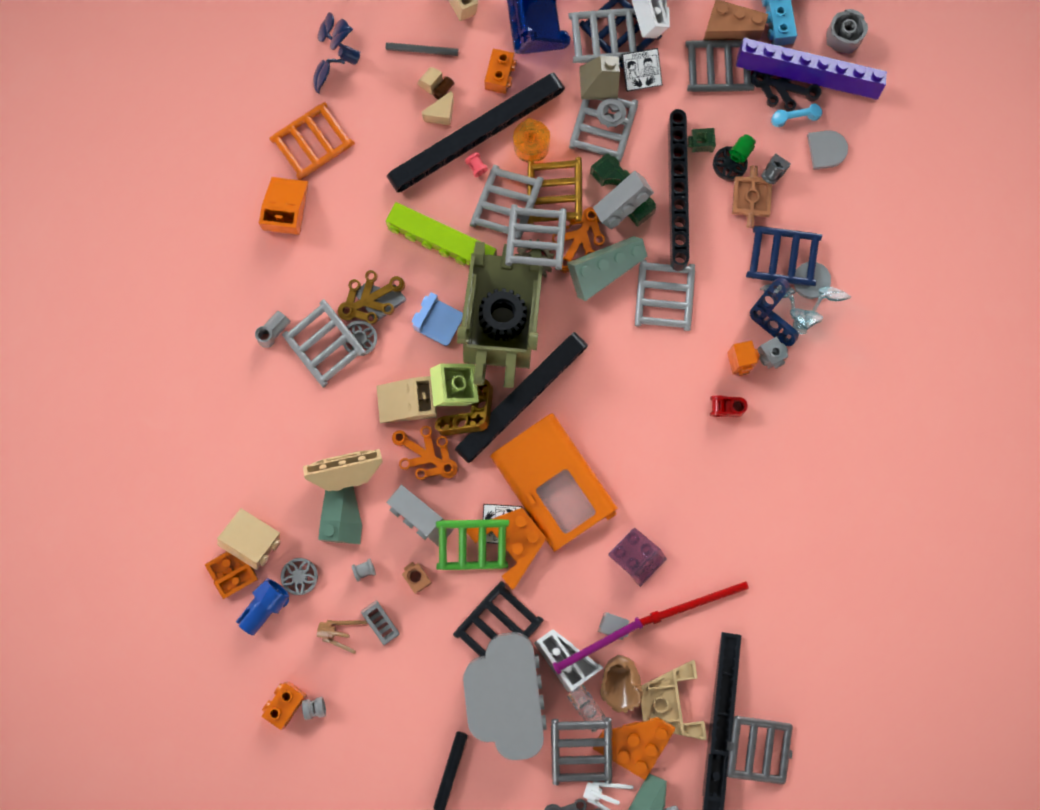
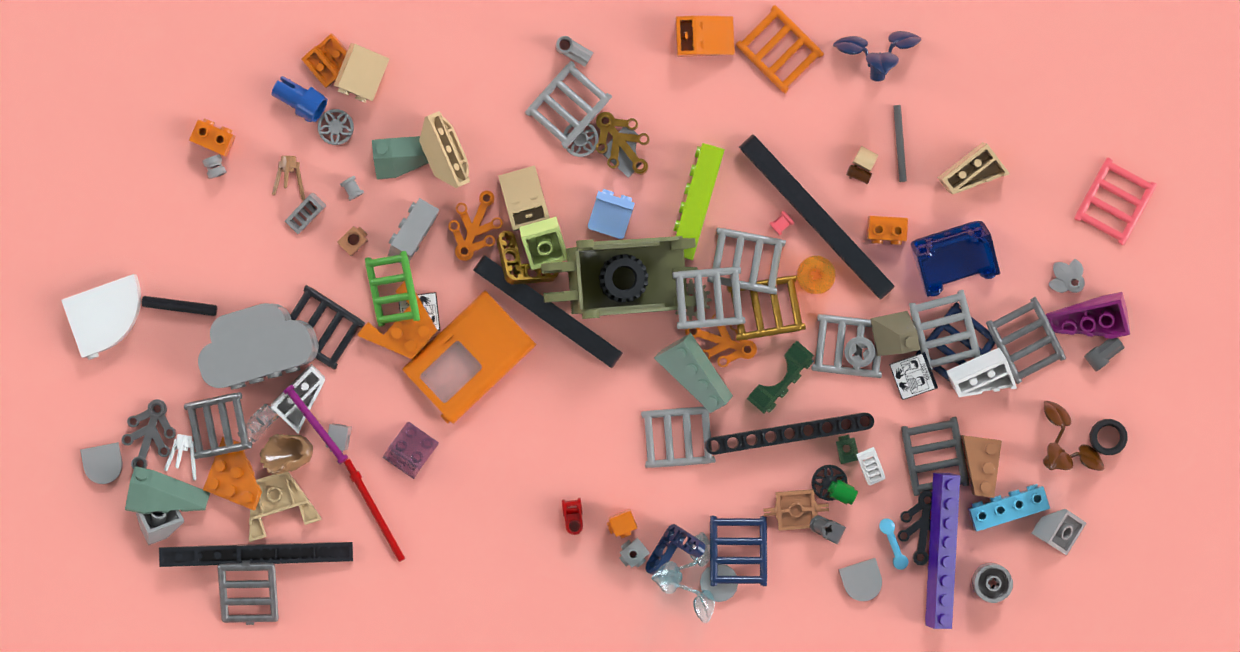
camera: 80 degrees right, 10 degrees up
(440, 111) = (833, 177): tan slope -> none
(623, 200) = (763, 379): light grey brick -> none
(722, 119) = (871, 467): none -> white slope

